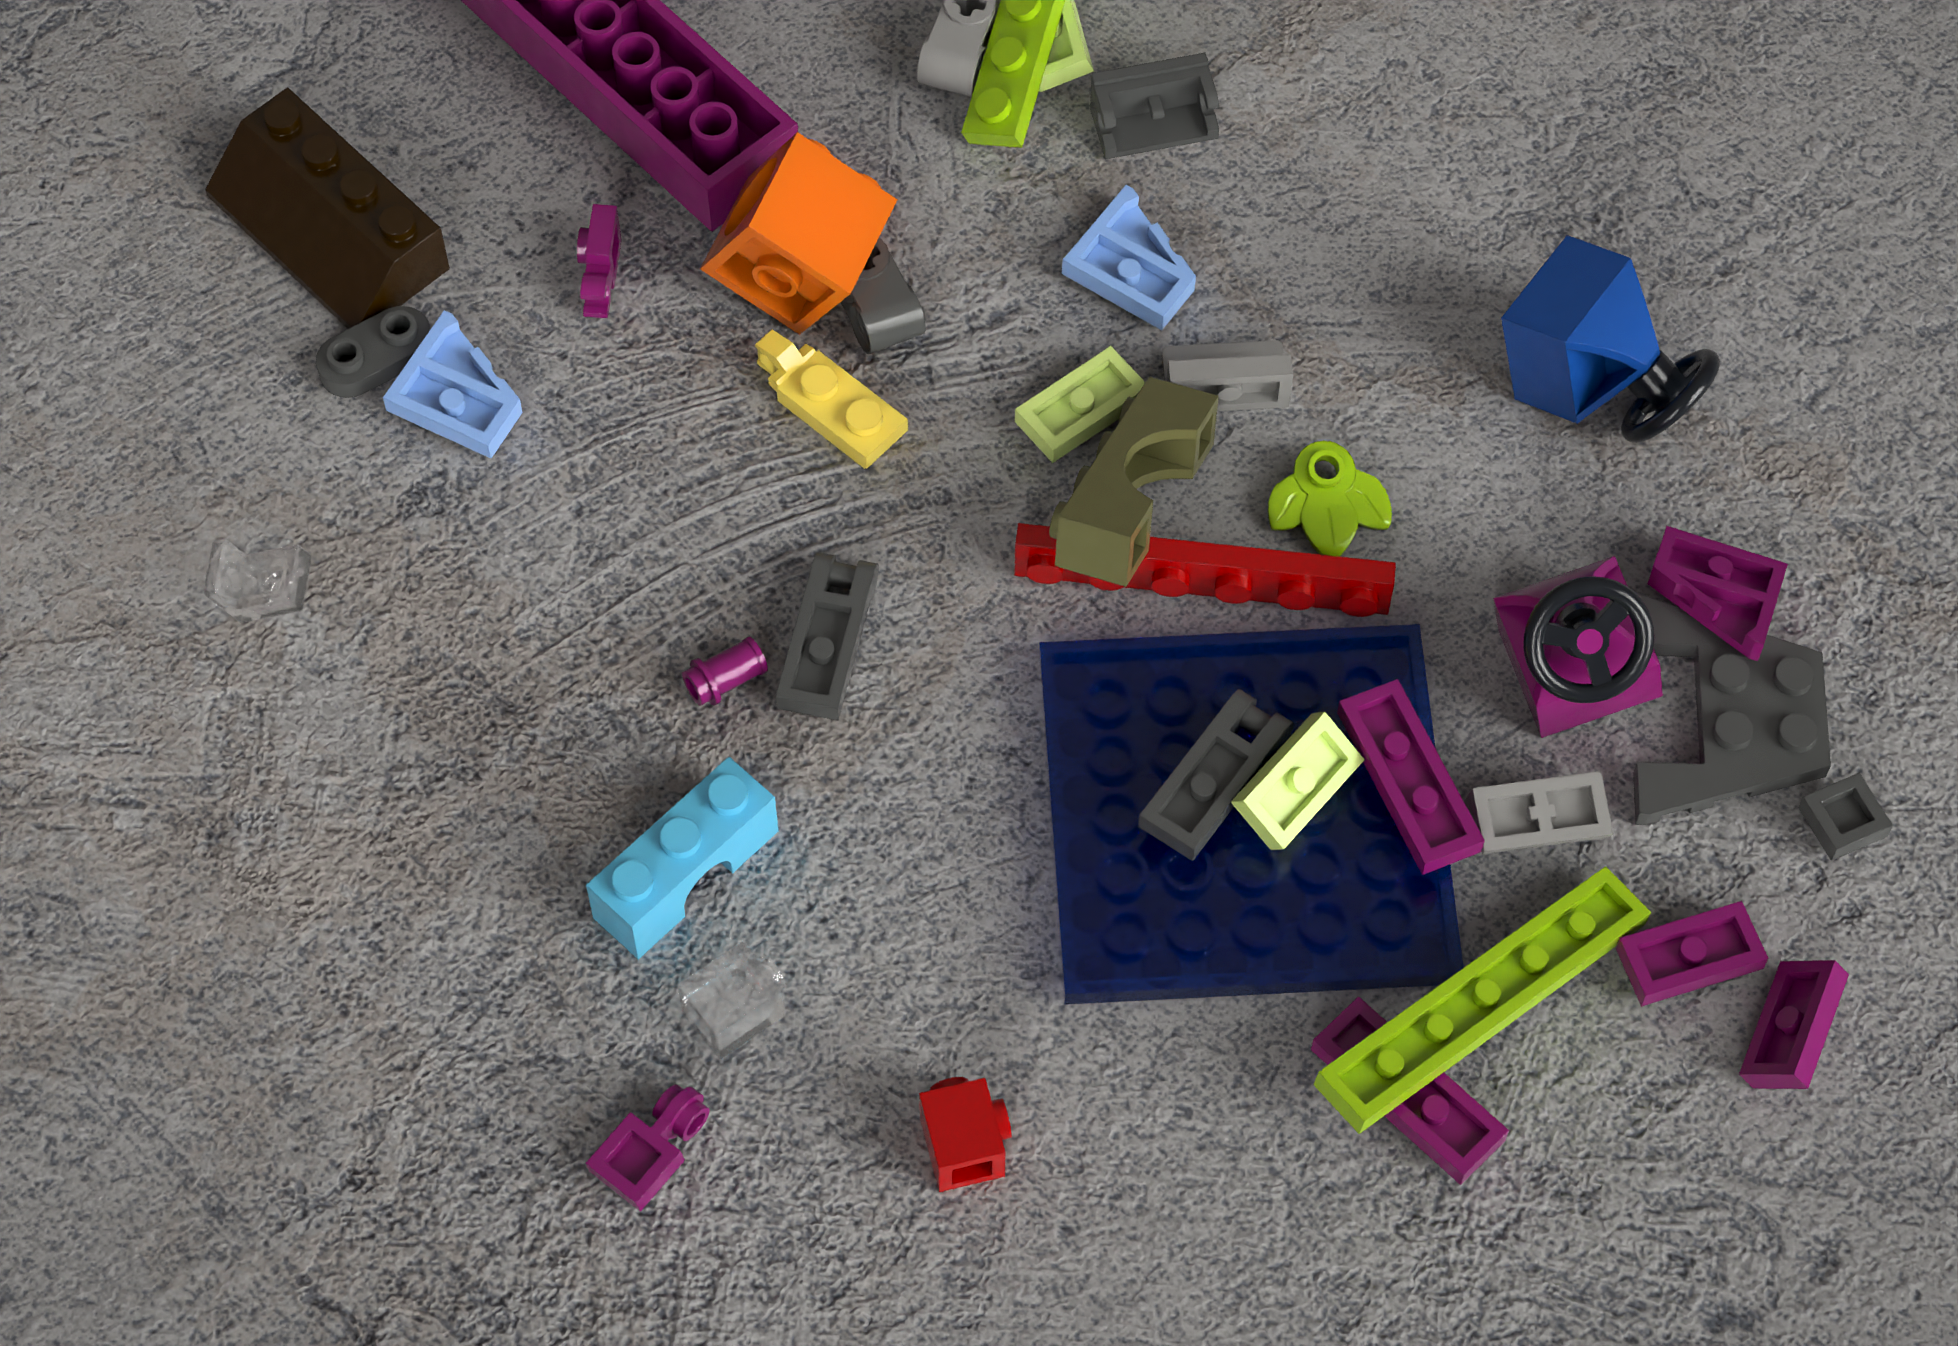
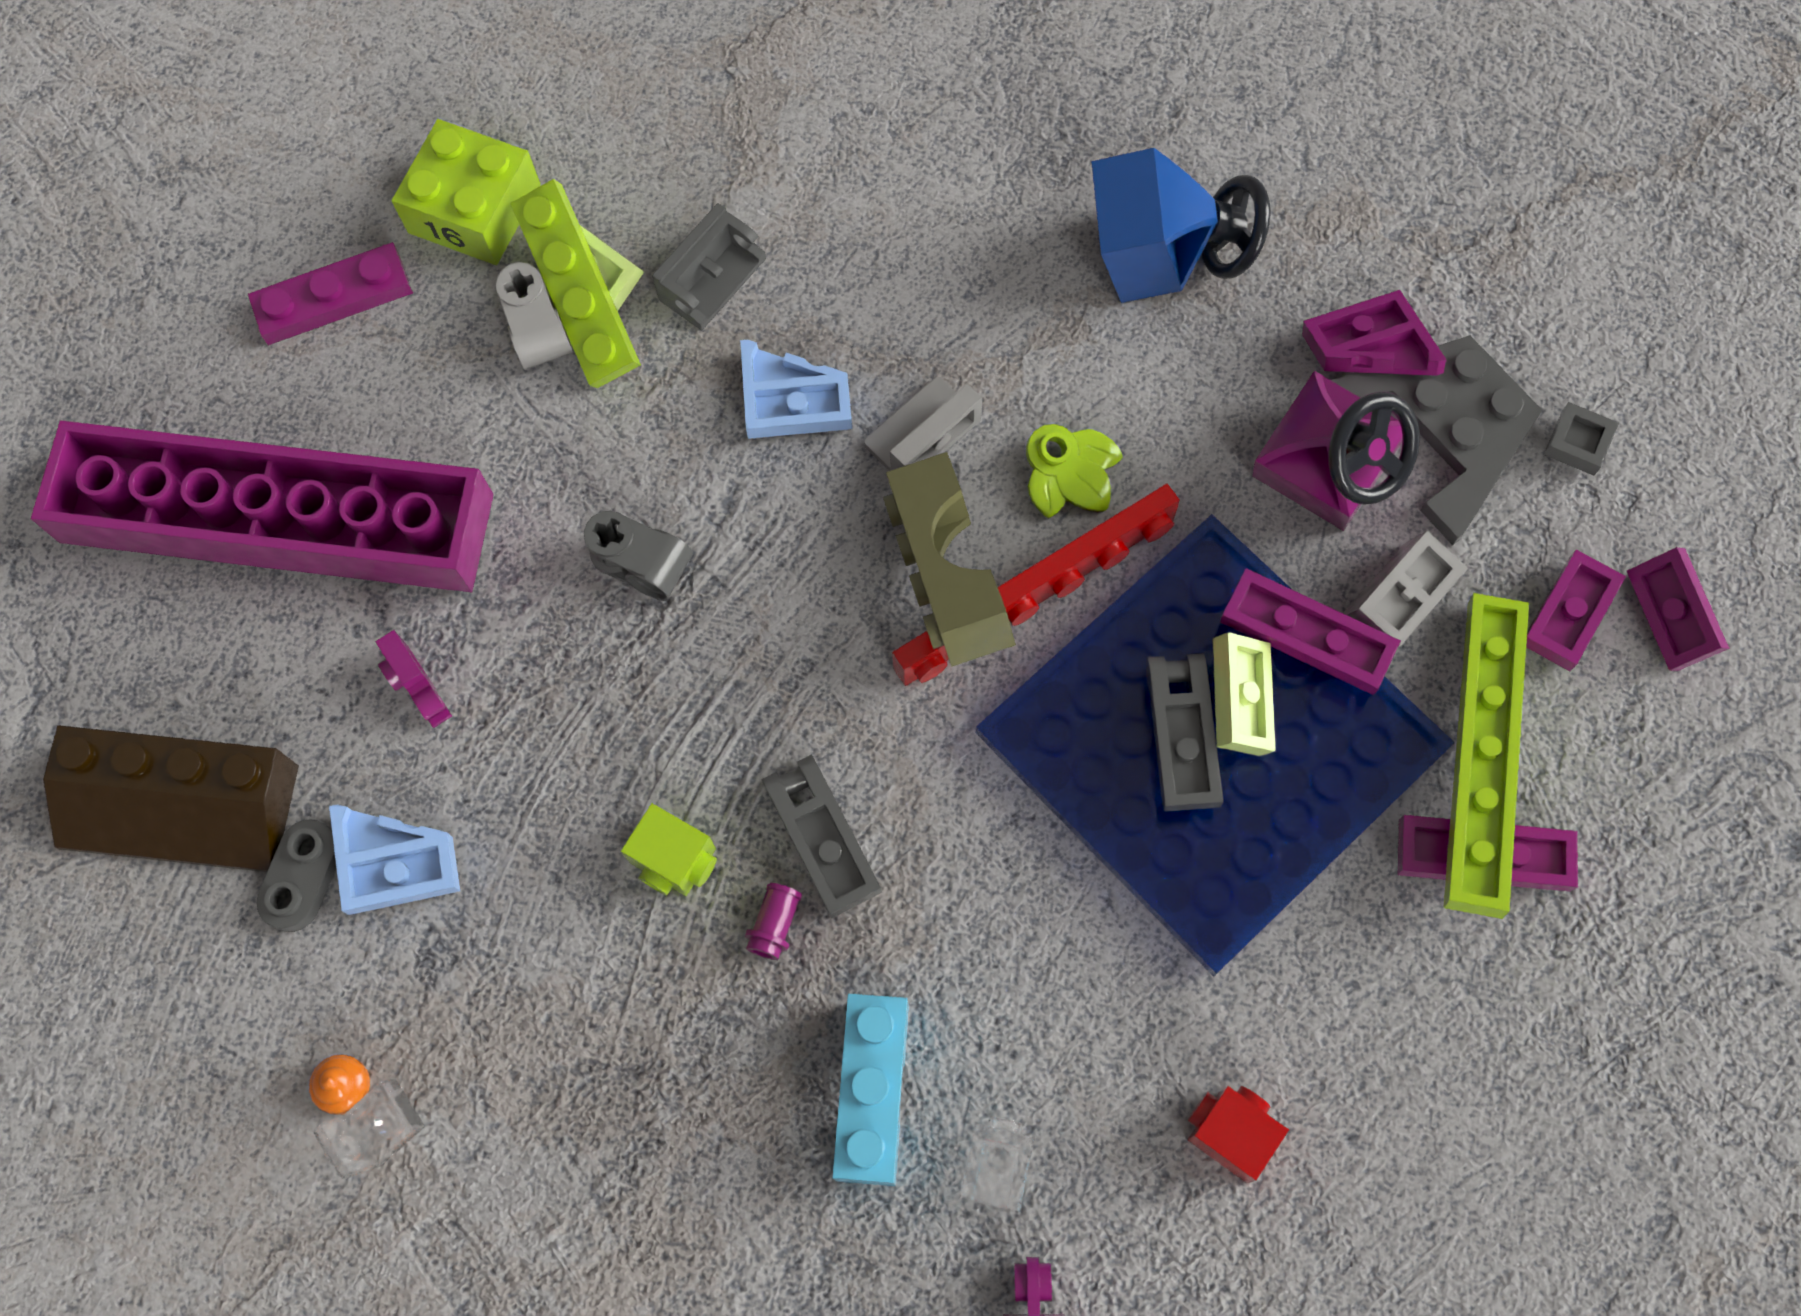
camera: 35 degrees left, 10 degrees up
(263, 528) = (338, 1084): none -> orange plate
(686, 550) = (669, 852): none -> lime brick
(799, 233) = (552, 551): orange brick -> none
(830, 399) = (668, 655): light yellow hinge -> none
(1079, 404) = (848, 526): yellowish green plate -> none

